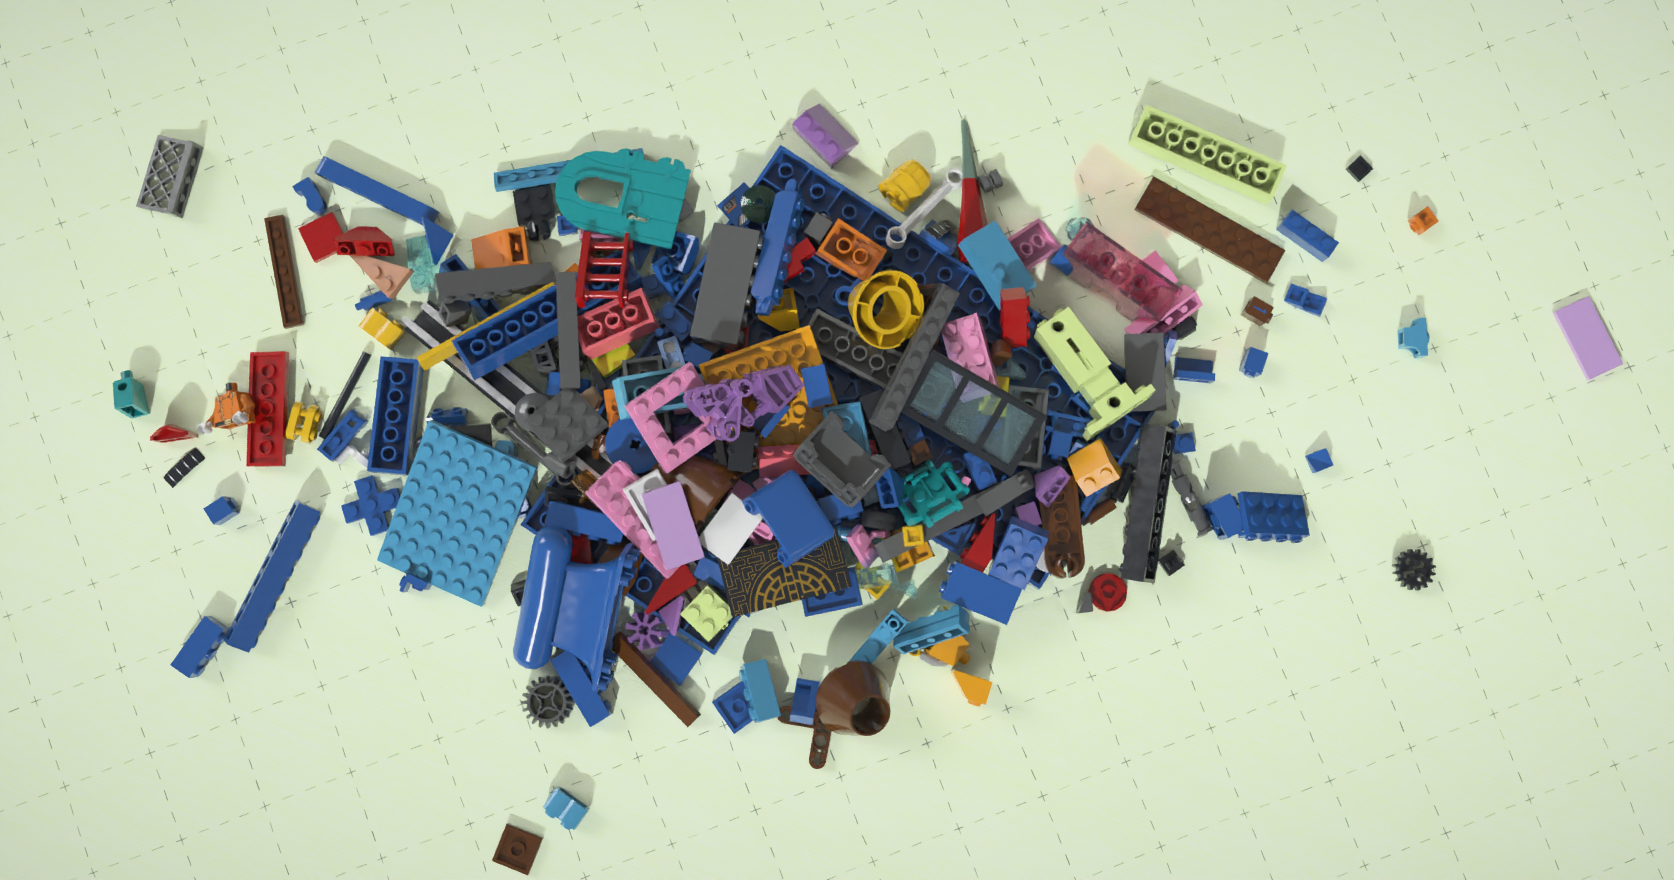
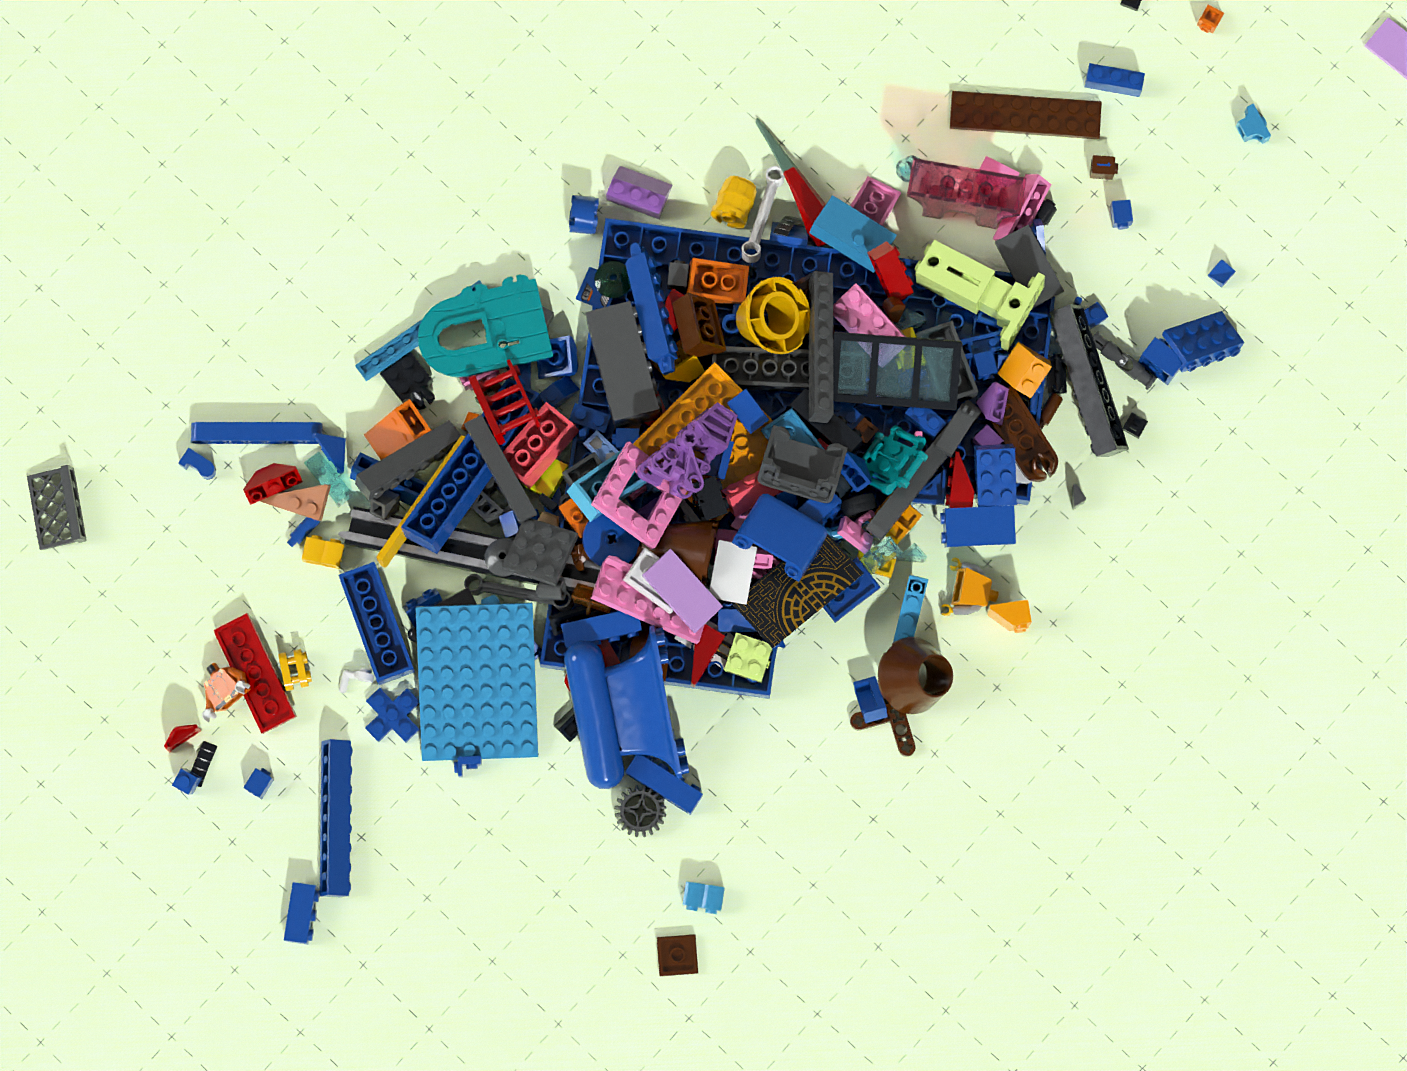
camera: 25 degrees left, 5 degrees down
(130, 396) = (123, 720): teal torso -> none
(158, 478) = (186, 781): none -> blue brick
(284, 271) = (205, 544): reddish brown tile -> none
(320, 236) = (225, 496): red tile -> none
(342, 435) = (334, 665): blue plate -> none
(345, 395) = (318, 628): black piece -> none
(565, 227) = (445, 382): blue plate -> none
(645, 639) = (699, 712): medium lavender gear -> none
(654, 679) = (727, 746): reddish brown tile -> none
(670, 281) = (566, 386): blue slope -> none
(672, 616) = (716, 677): medium lavender slope -> none
(675, 659) = (735, 720): blue tile -> none
(734, 707) = (813, 735): blue tile -> none
(759, 691) = (825, 709): dark azure brick -> none
(763, 132) = (583, 214): none -> blue brick
(812, 283) = (698, 325): none -> reddish brown slope
(913, 535) = (896, 502): yellow tile -> none
(932, 629) = (952, 580): dark azure brick -> none
(990, 181) = (808, 163): dark grey wheel -> none
(1061, 262) = (908, 205): blue piece -> none
(1108, 592) = (1092, 477): red tile -> none
(1193, 370) = (1072, 246): blue panel -> none
(1207, 155) = (990, 50): yellowish green brick -> none
(1305, 300) = (1141, 138): blue slope -> none
(1415, 560) = (1353, 339): black gear -> none

